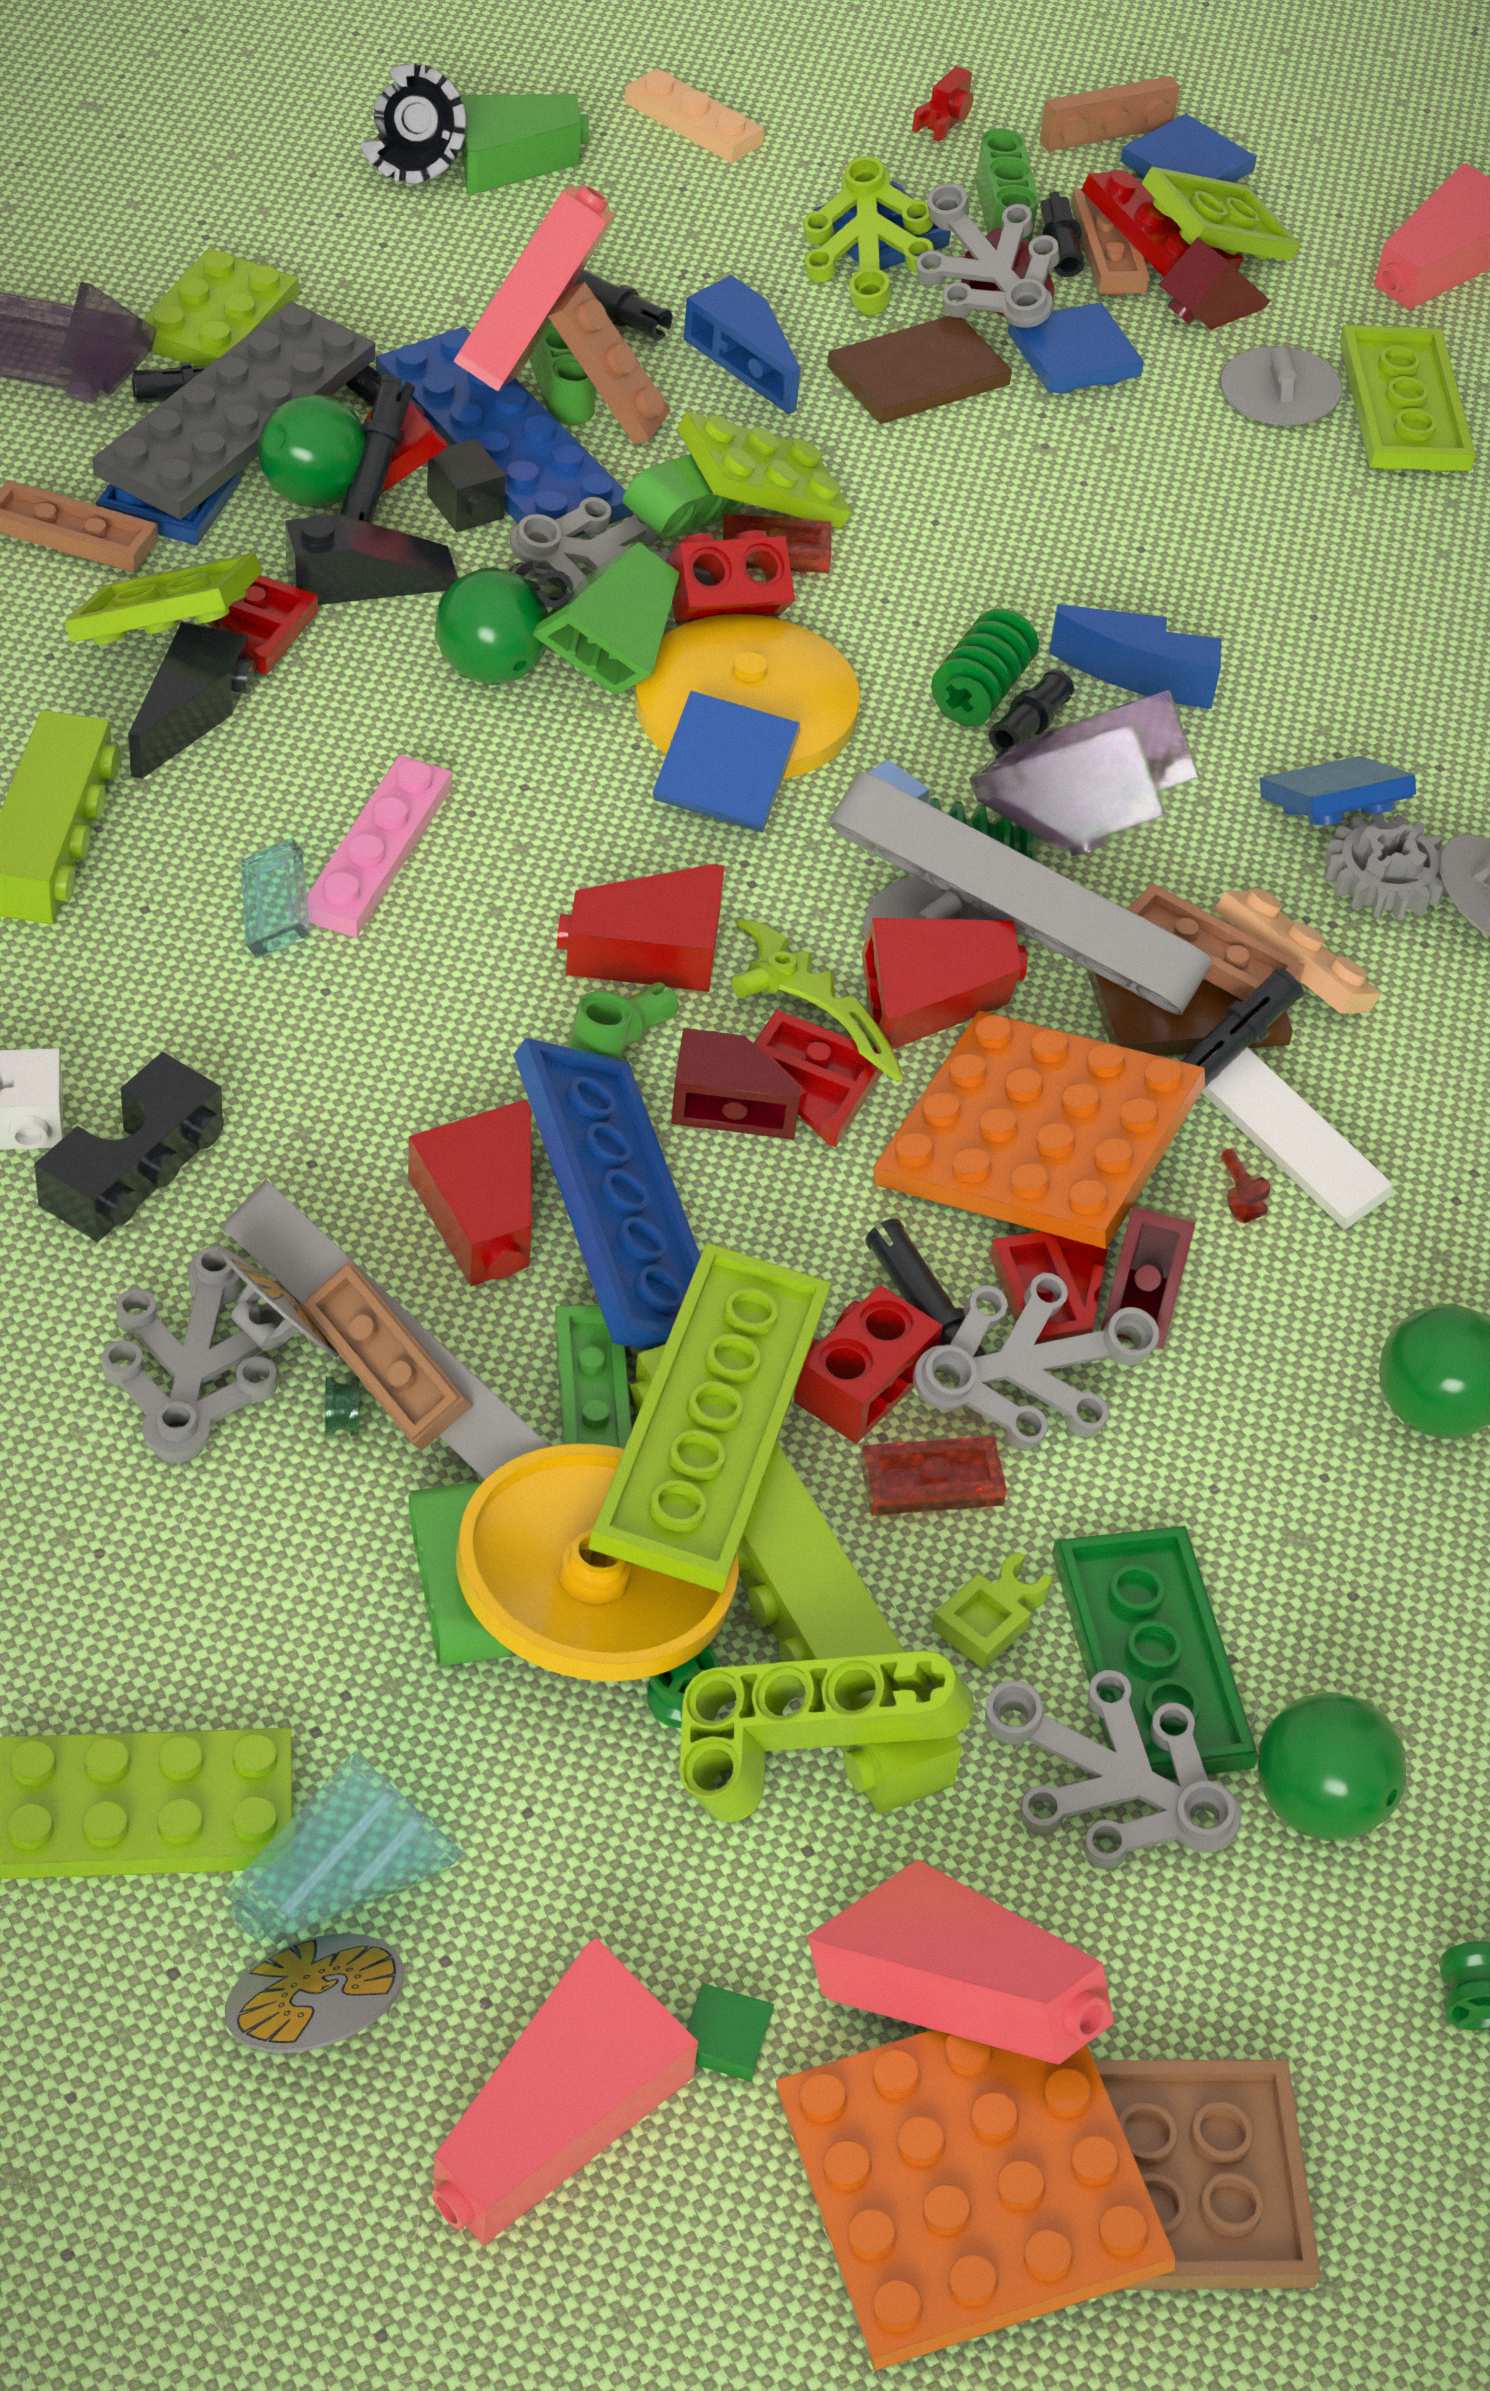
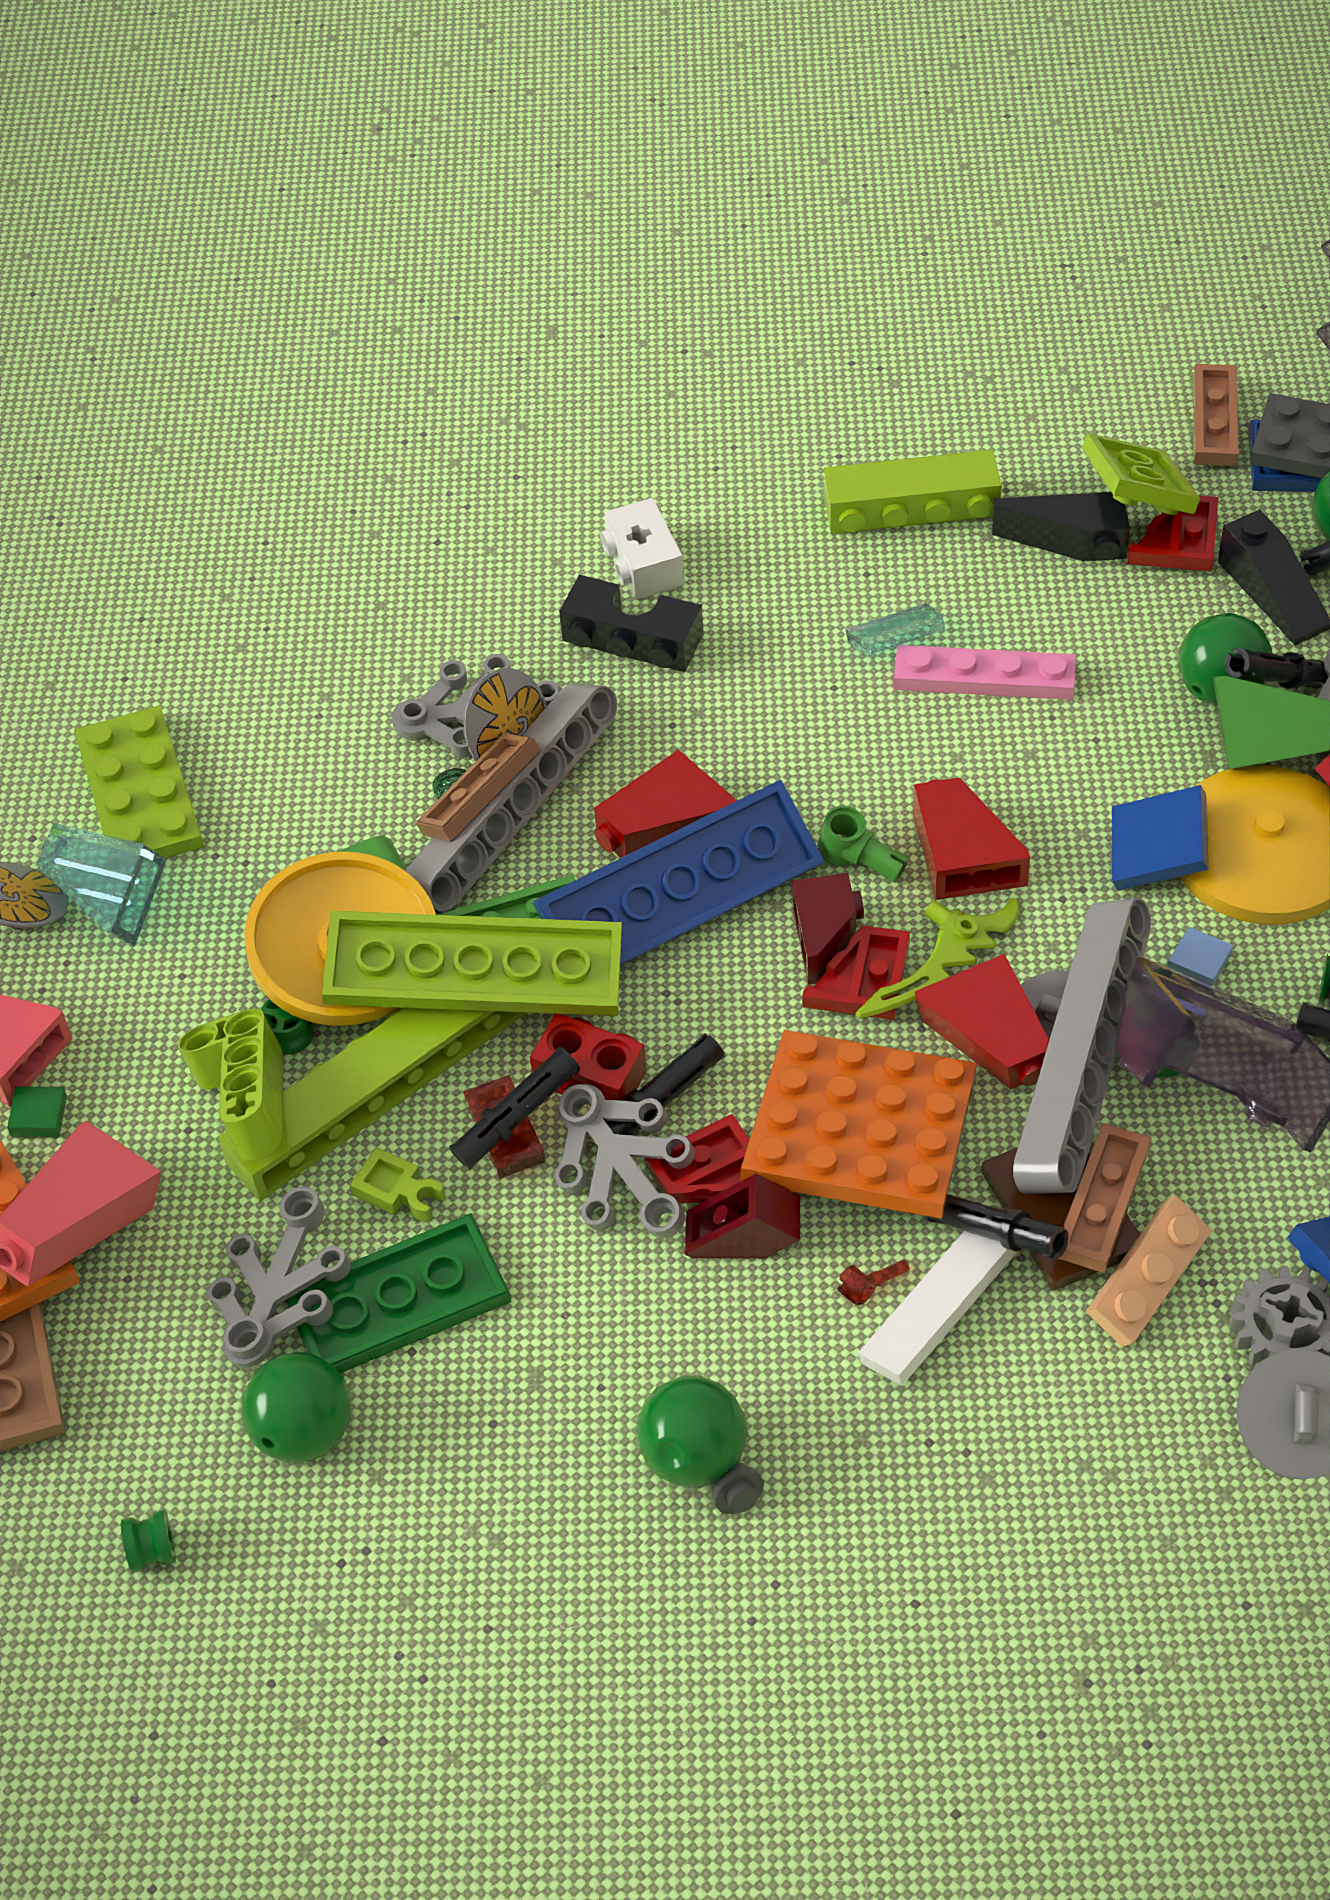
camera: 85 degrees right, 5 degrees up
(954, 1457) = (514, 1108): none -> black pin

